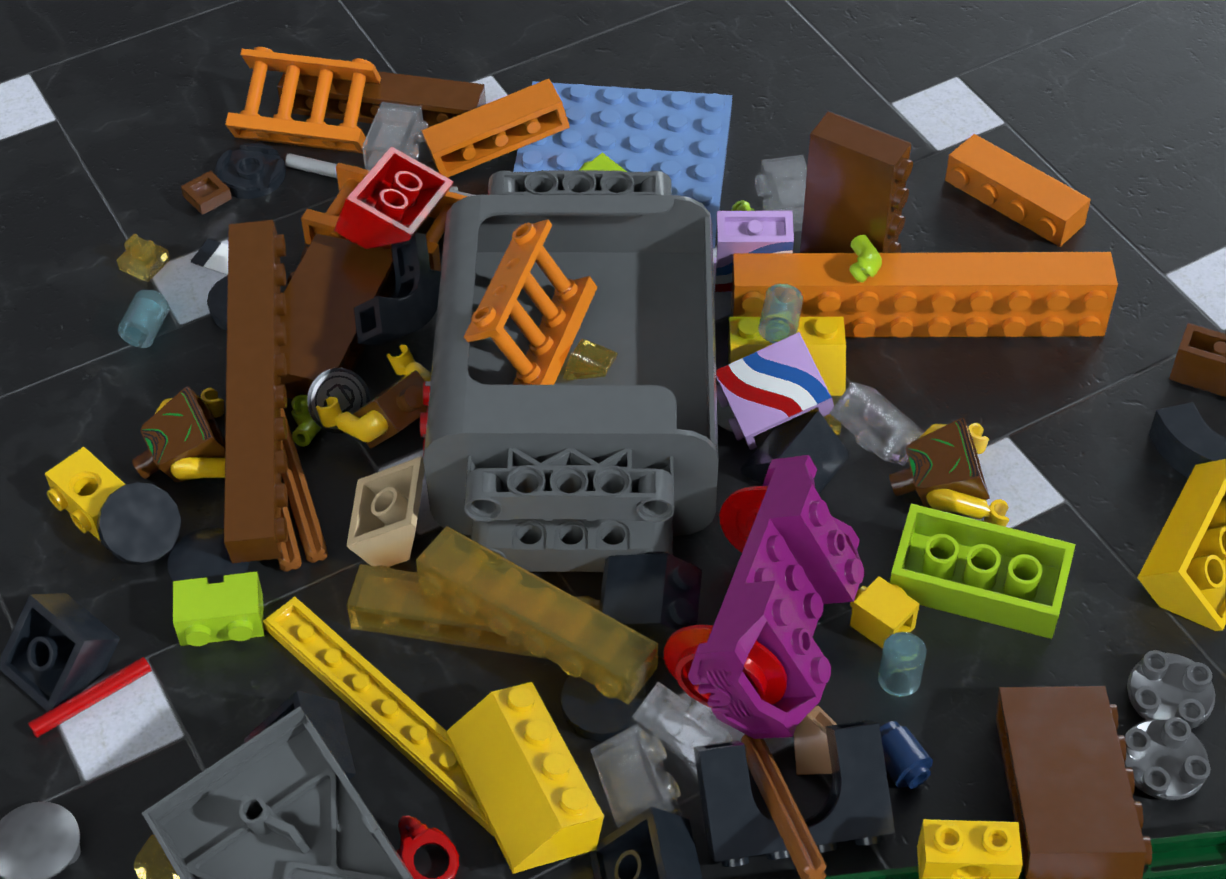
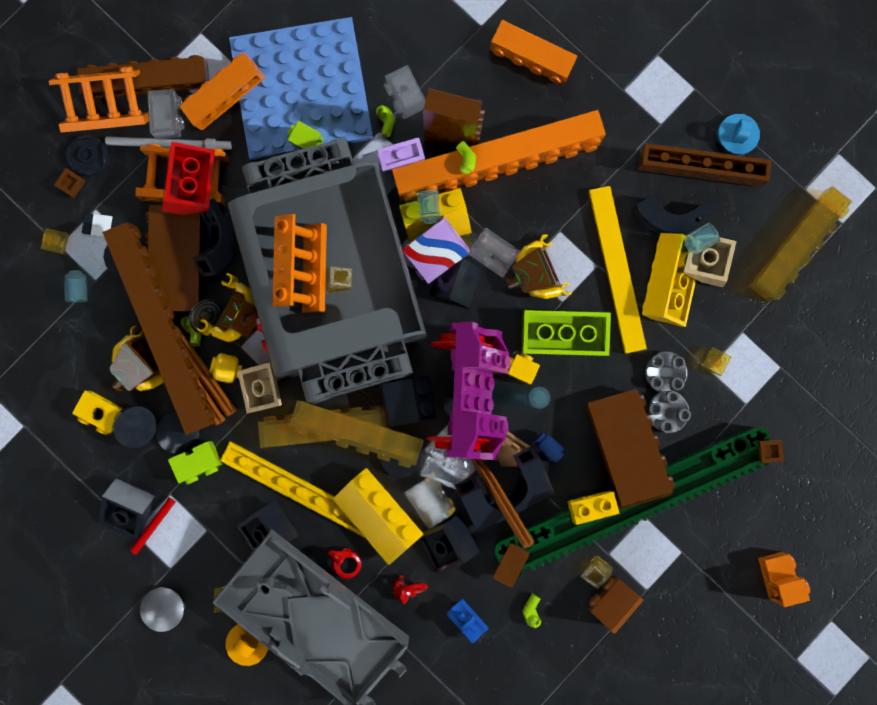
camera: 25 degrees left, 35 degrees up
(335, 480) = (225, 368): none -> yellow head
(1104, 518) = (617, 269): none -> yellow tile

